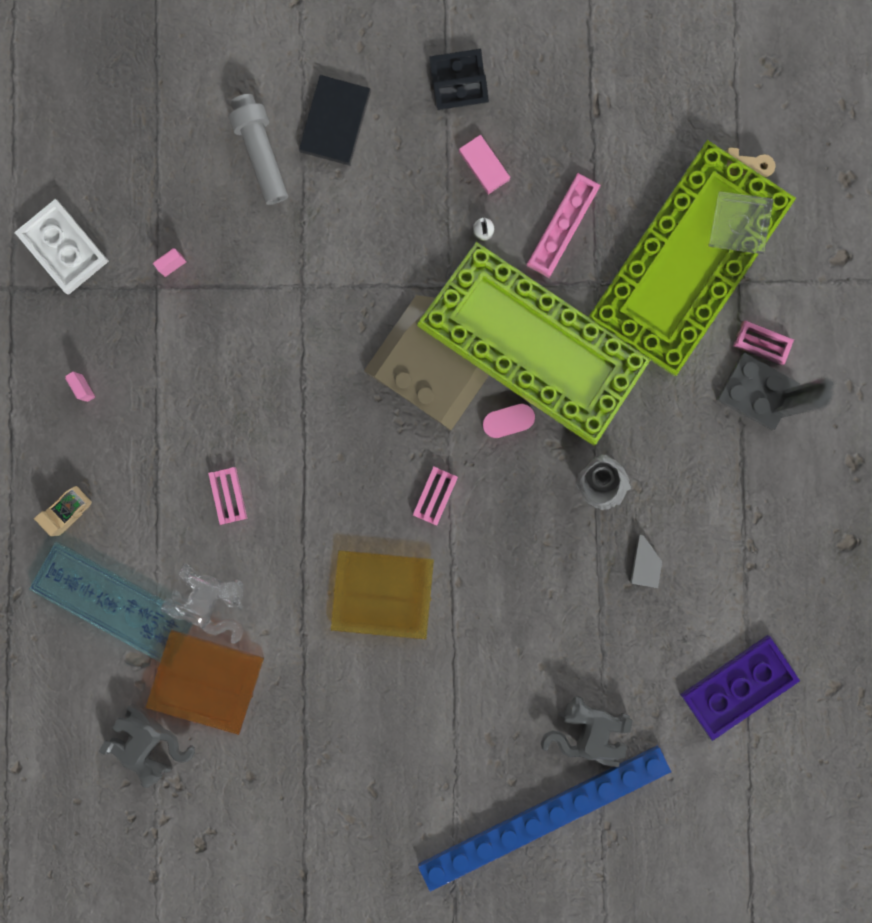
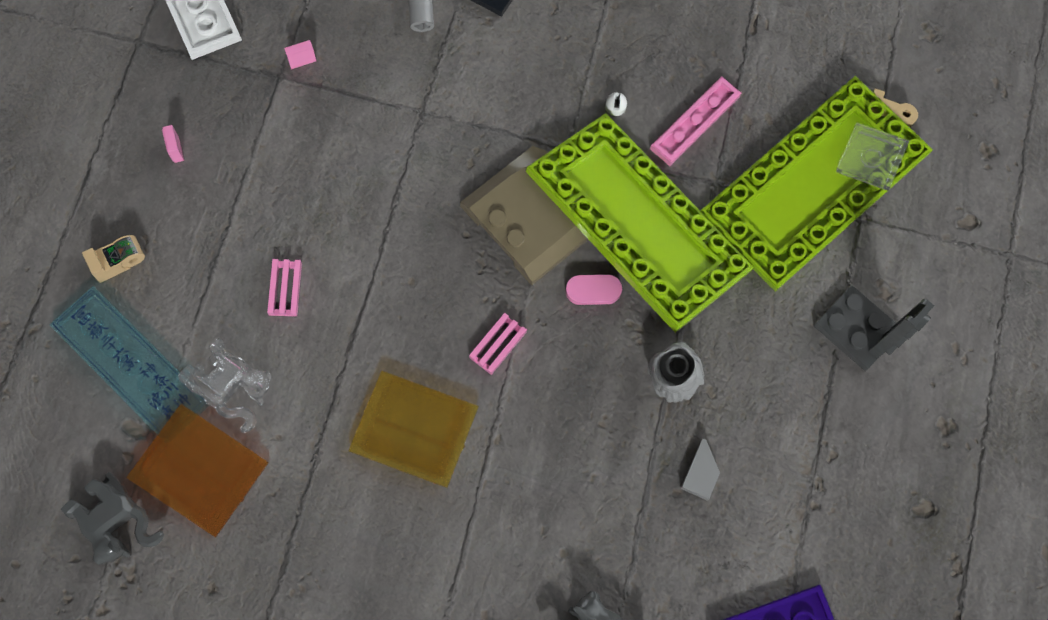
camera: 10 degrees right, 15 degrees down
(484, 164) = (632, 47): bright pink tile -> none
(745, 325) = (869, 290): bright pink tile -> none

